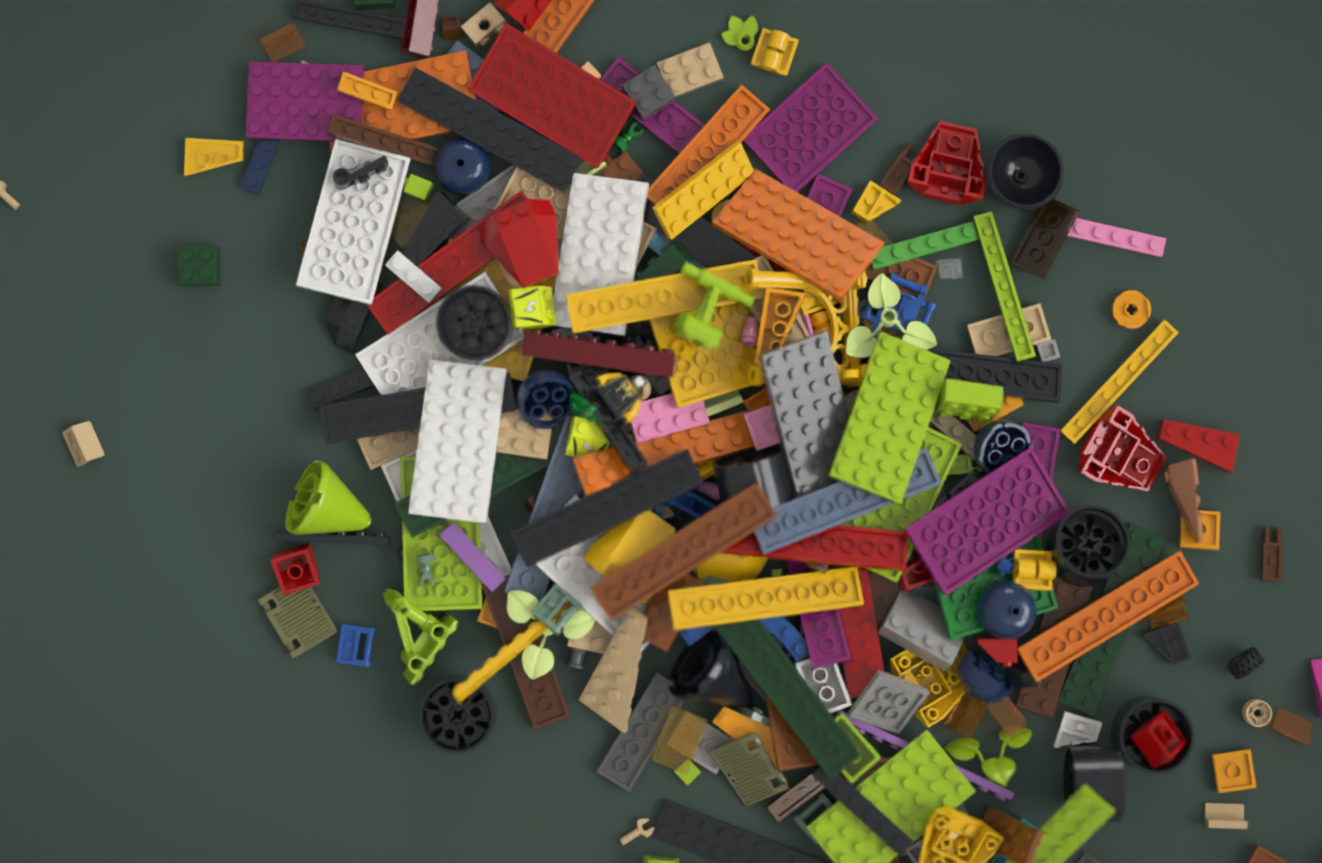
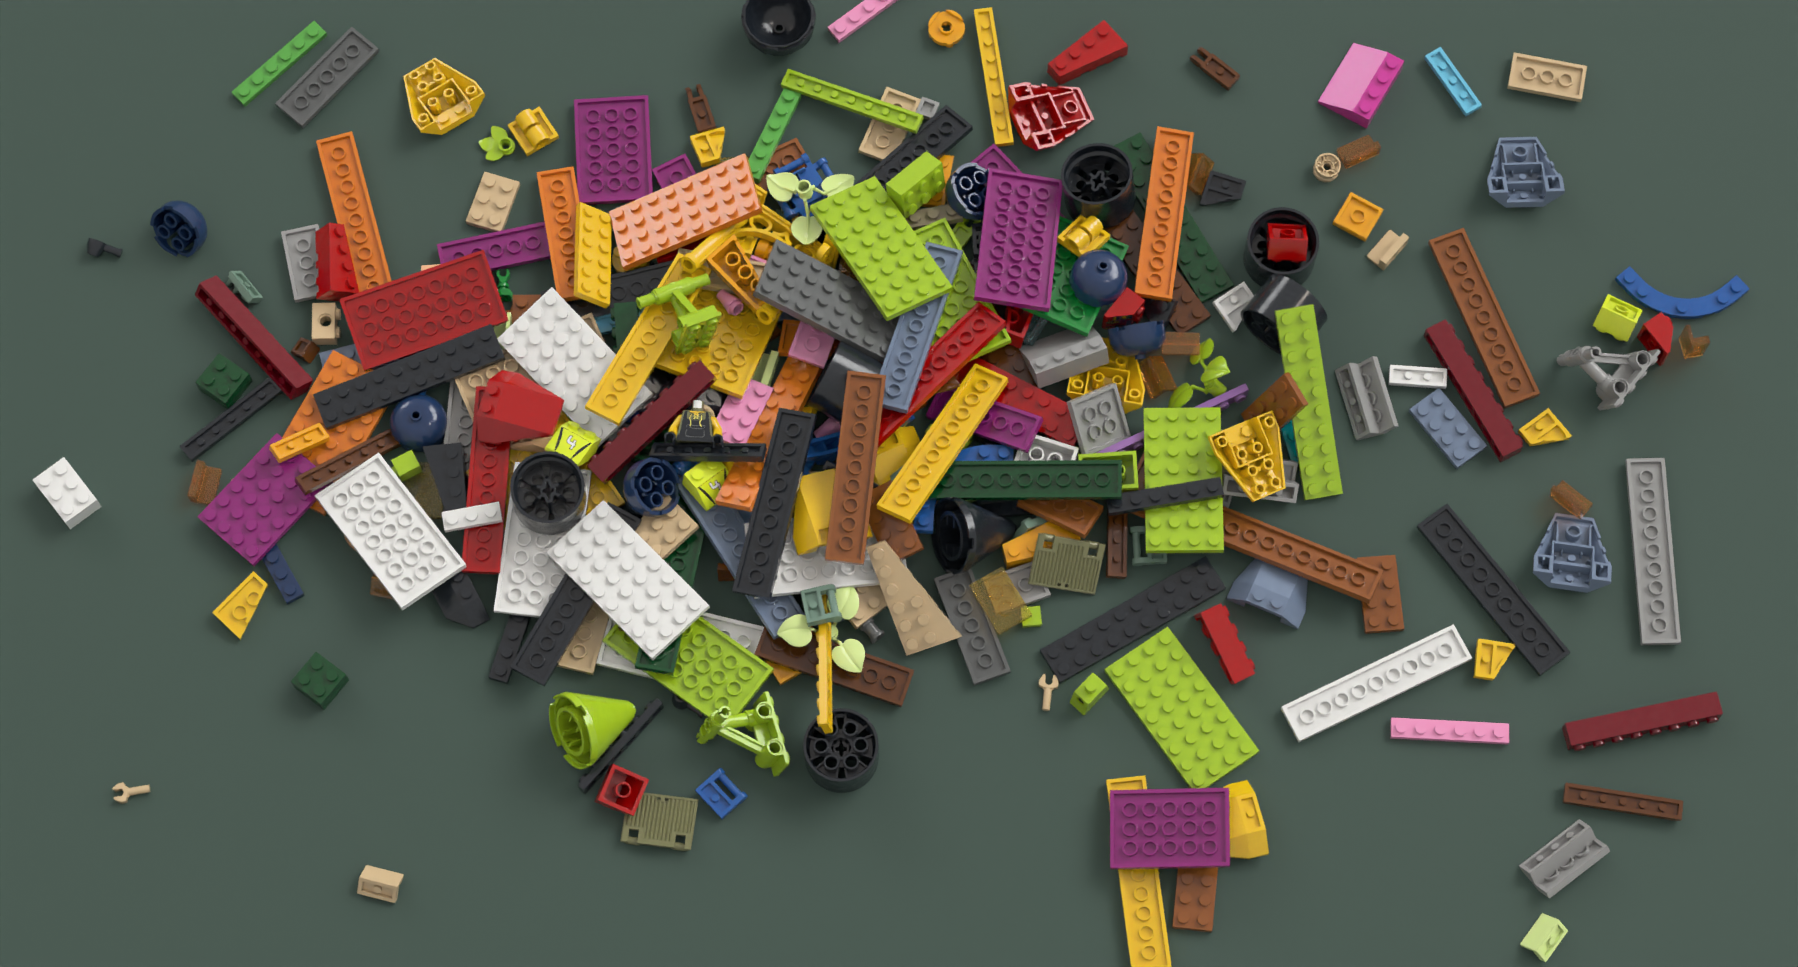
camera: 50 degrees left, 15 degrees down
(361, 175) = (360, 495): black plate -> none
(424, 560) = (698, 680): sand green piece -> none
(473, 557) = (727, 642): medium lavender tile -> none
(580, 407) = (679, 463): green plate -> none
(650, 92) = (486, 235): dark grey brick -> none
(950, 166) = (729, 71): red wedge -> none
(950, 268) = (805, 129): clear panel -> none
(1005, 566) = (1064, 253): blue plate -> none
(1044, 238) = (840, 45): dark brown plate -> none
(1182, 484) = (1112, 90): nougat wedge -> none
(1210, 532) = (1153, 103): light orange plate -> none
(1245, 662) = (1281, 144): black tyre -> none

